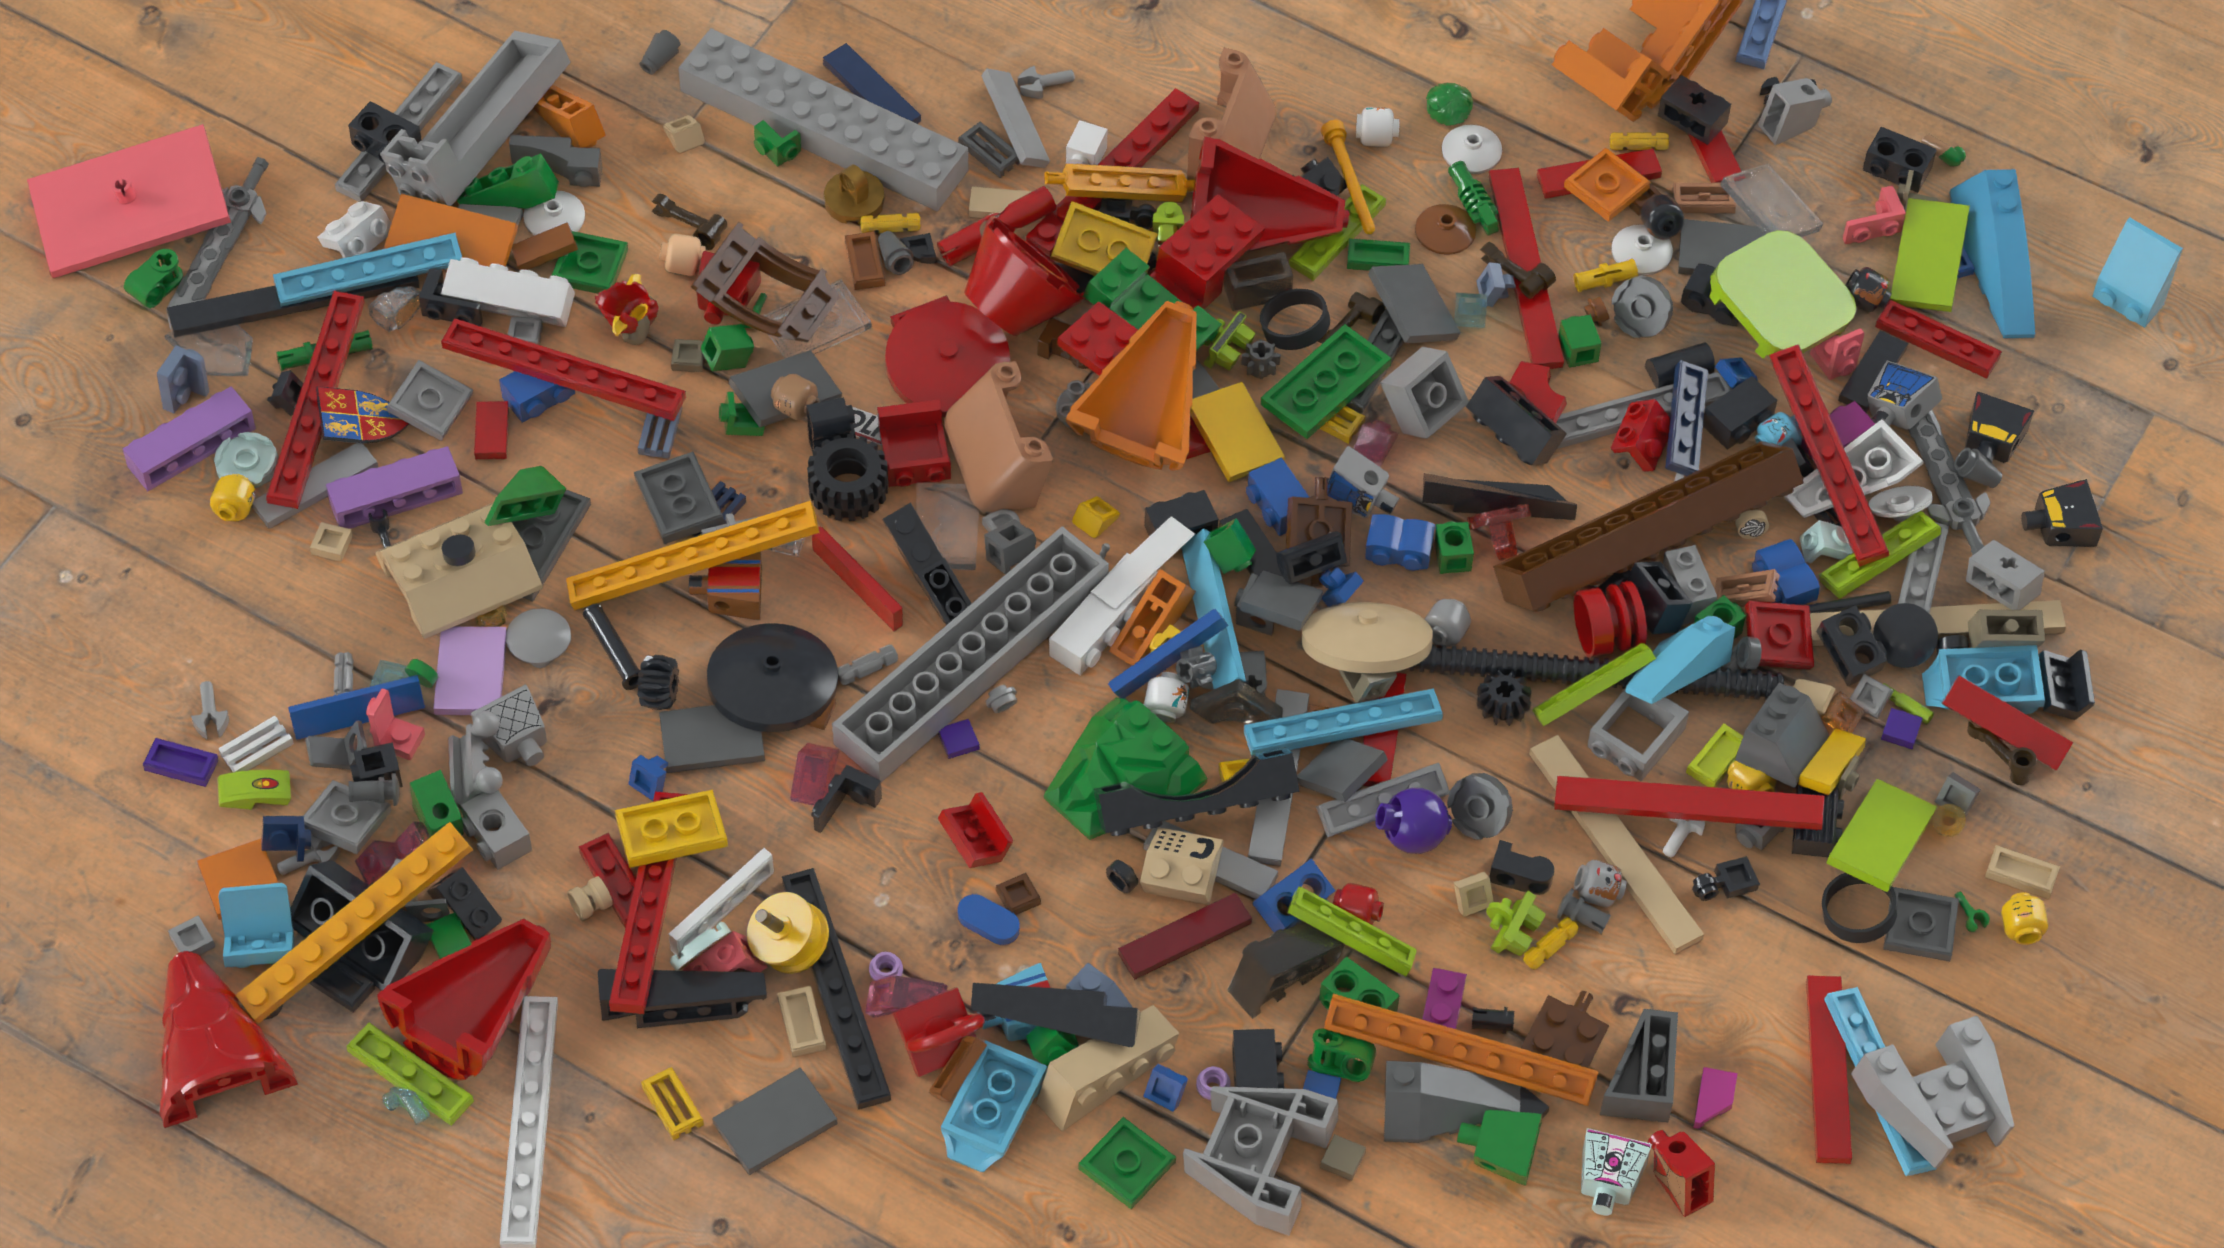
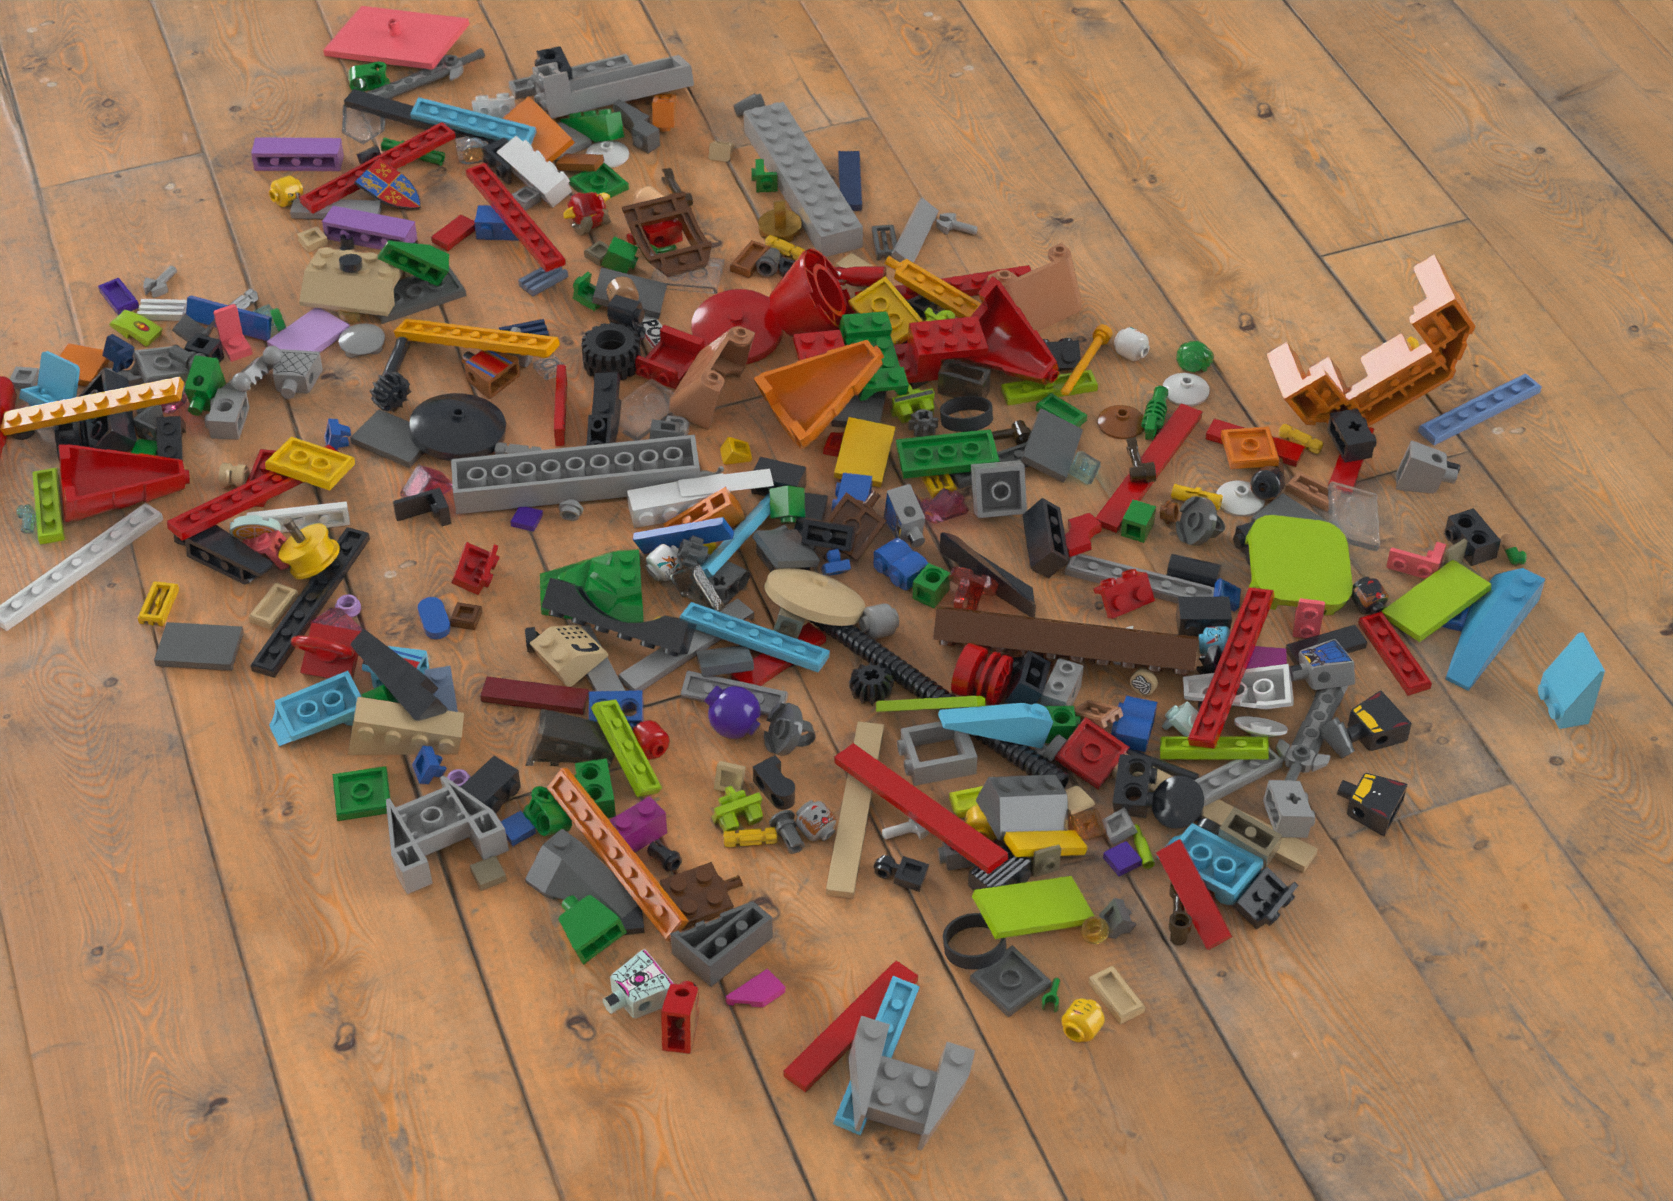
camera: 40 degrees right, 10 degrees down
(180, 375) = (319, 119): sand blue bracket -> none
(249, 456) = (314, 176): light aqua tile -> none
(429, 400) = (437, 201): light grey tile -> none
(678, 497) = (512, 310): dark grey tile -> none
(957, 1068) = (319, 676): dark orange tile -> none
(1086, 144) = (941, 263): white brick -> none
(1494, 283) = (1116, 463): sand blue tile -> none
(1686, 418) = (1161, 598): tile -> none

